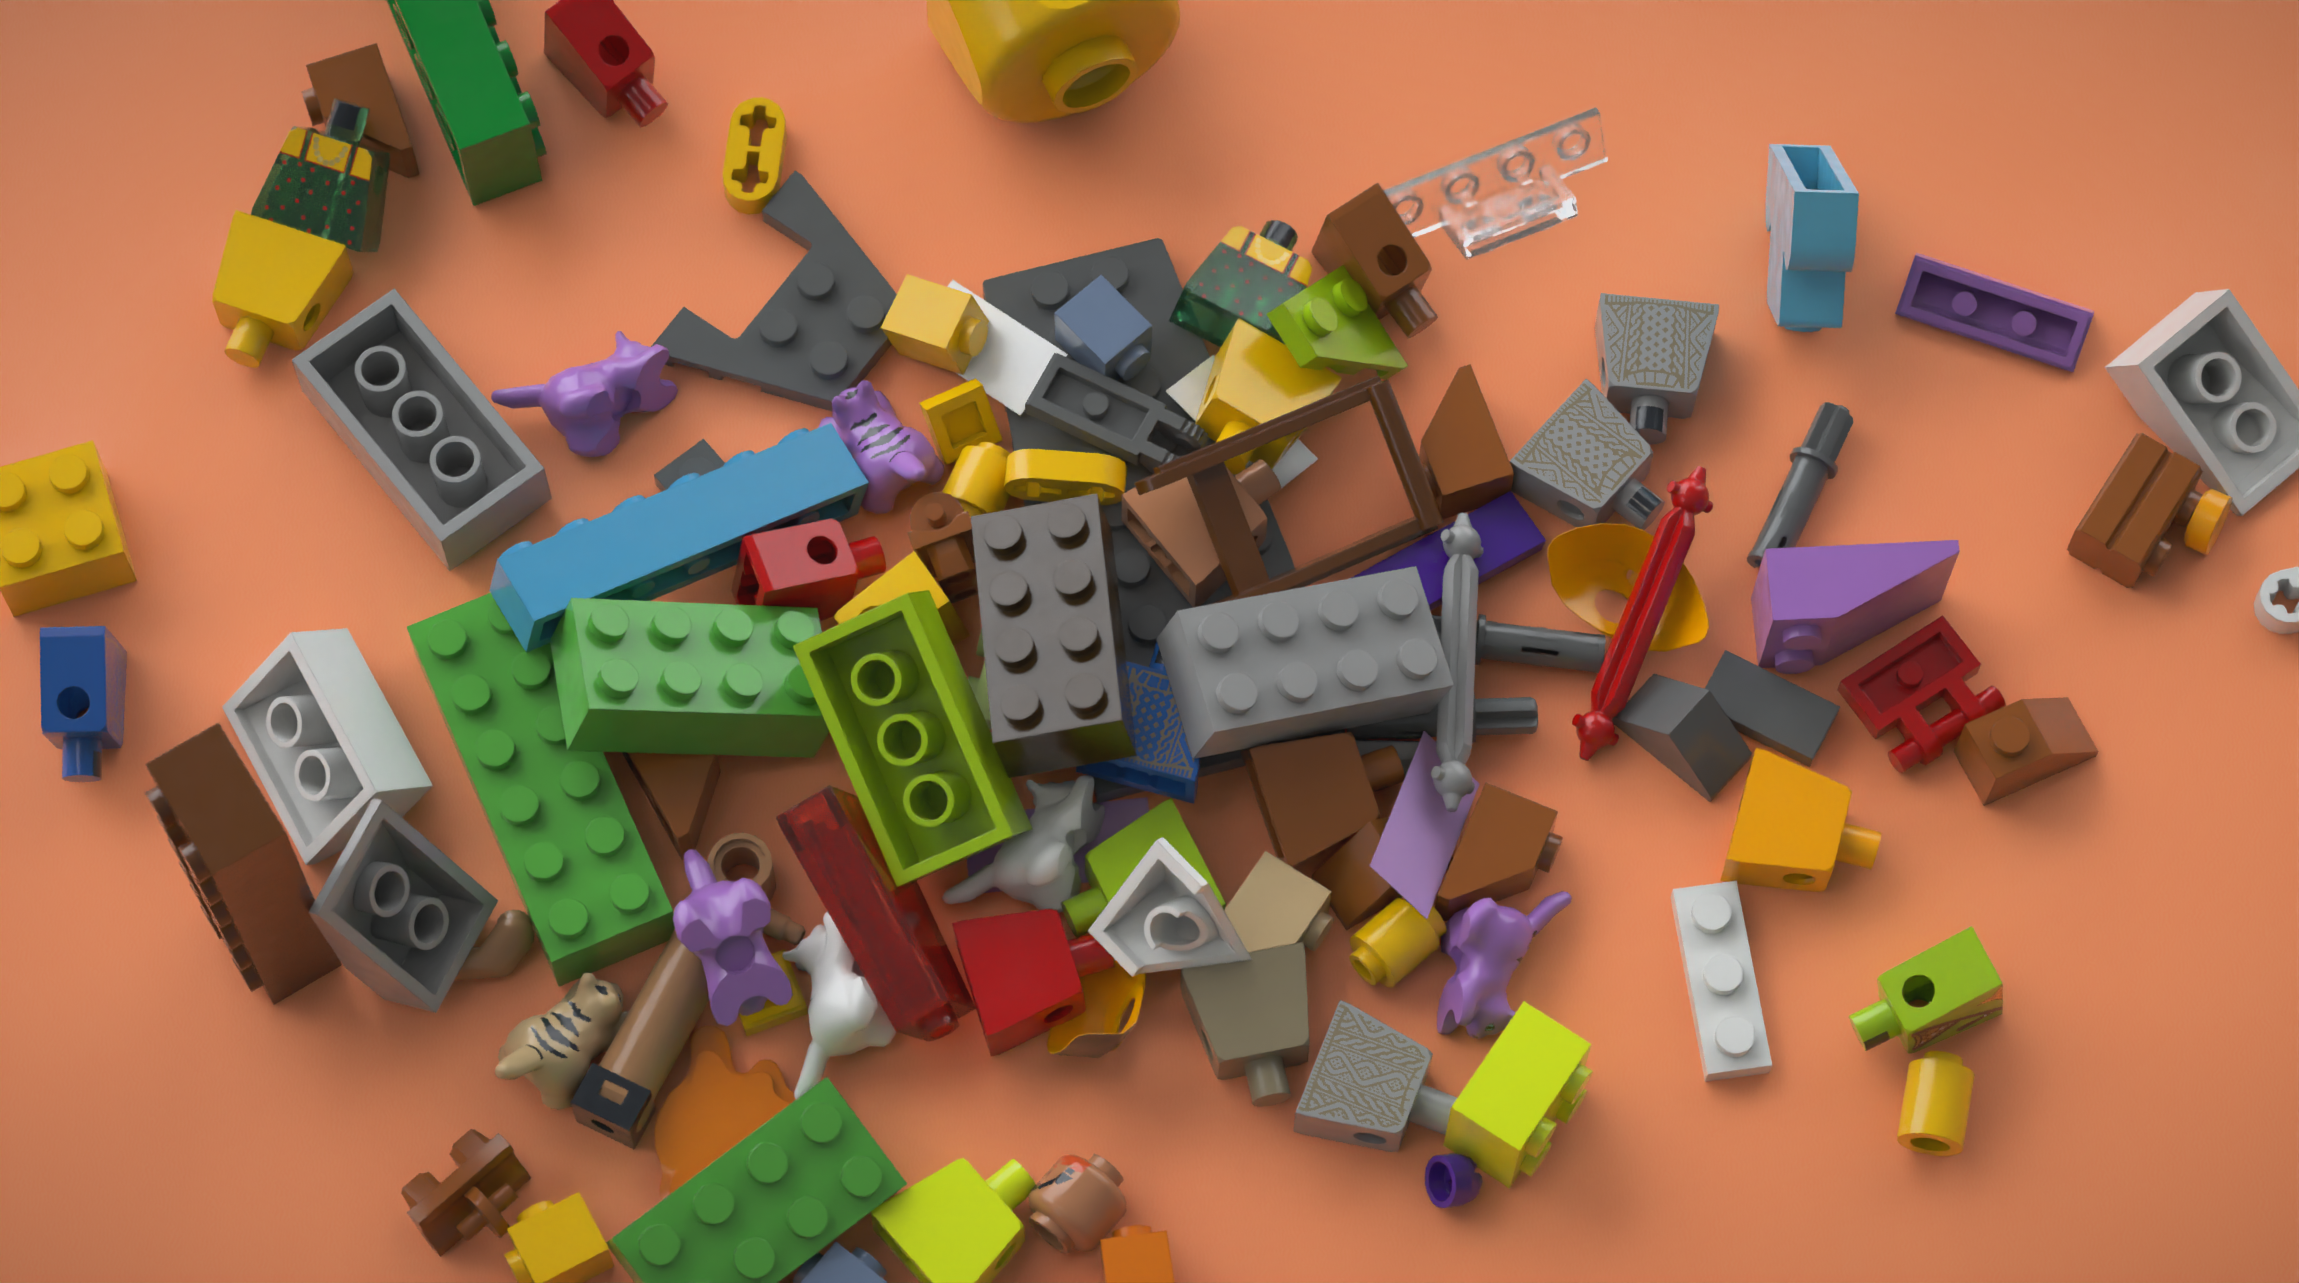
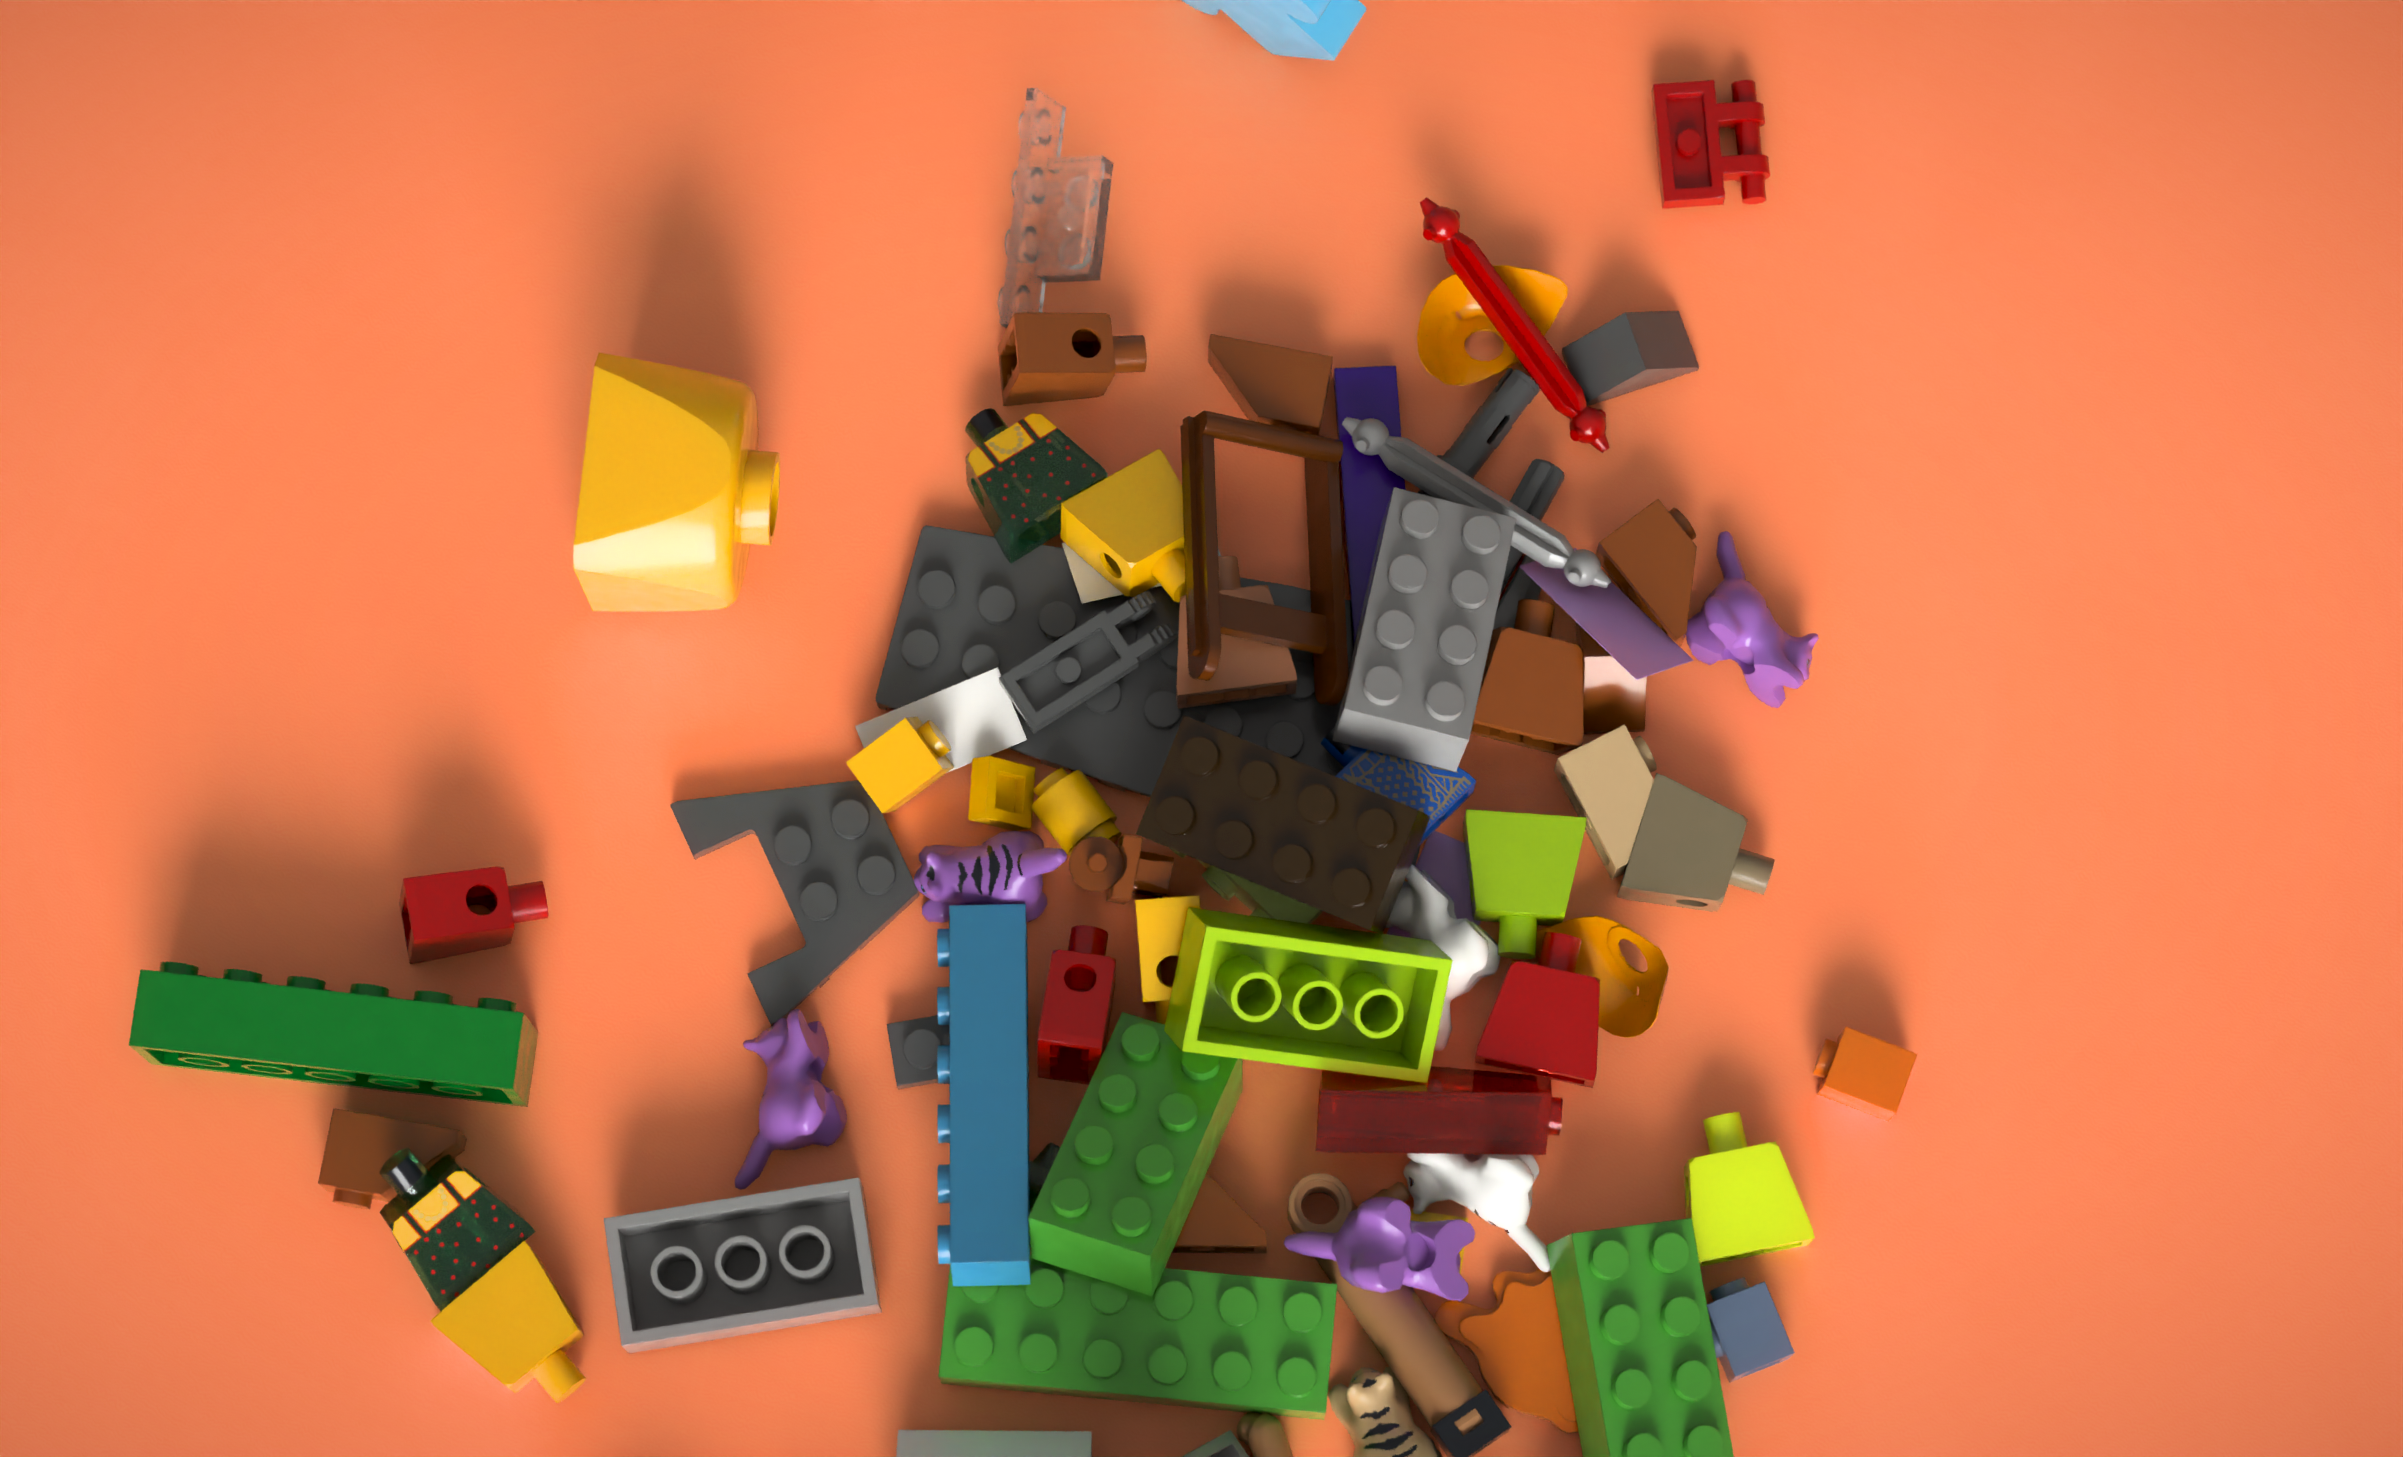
camera: 60 degrees left, 10 degrees up
(741, 154) = (639, 820): yellow beam -> none
(1064, 475) = (1119, 733): yellow beam -> none
(1077, 1203) = (1771, 1086): nougat head -> none
(1104, 331) = (1005, 624): sand blue brick -> none
(1166, 918) = (1581, 875): white slope -> none
(1336, 328) = (1108, 426): lime wing -> none
(1369, 1085) = (1800, 789): light grey torso -> none
(1395, 942) = (1687, 700): yellow brick -> none
(1452, 1180) = (1914, 783): dark purple hinge -> none
(1517, 1095) = (1889, 674): neon yellow brick -> none
(1587, 464) = (1350, 289): light grey torso -> none
(1652, 357) = (1284, 181): light grey torso -> none
(1721, 981) = (1862, 454): white plate -> none
(1772, 708) = (1647, 272): dark grey tile -> none
(1793, 828) = (1768, 317): light orange torso -> none
(1809, 471) = (1469, 129): dark grey axle -> none
(1835, 597) = (1593, 184): medium lavender slope -> none
(1936, 1104) = (2067, 345): yellow brick -> none
(1951, 977) = (1987, 268): lime torso -> none
(2022, 746) = (1801, 91): dark orange slope -> none

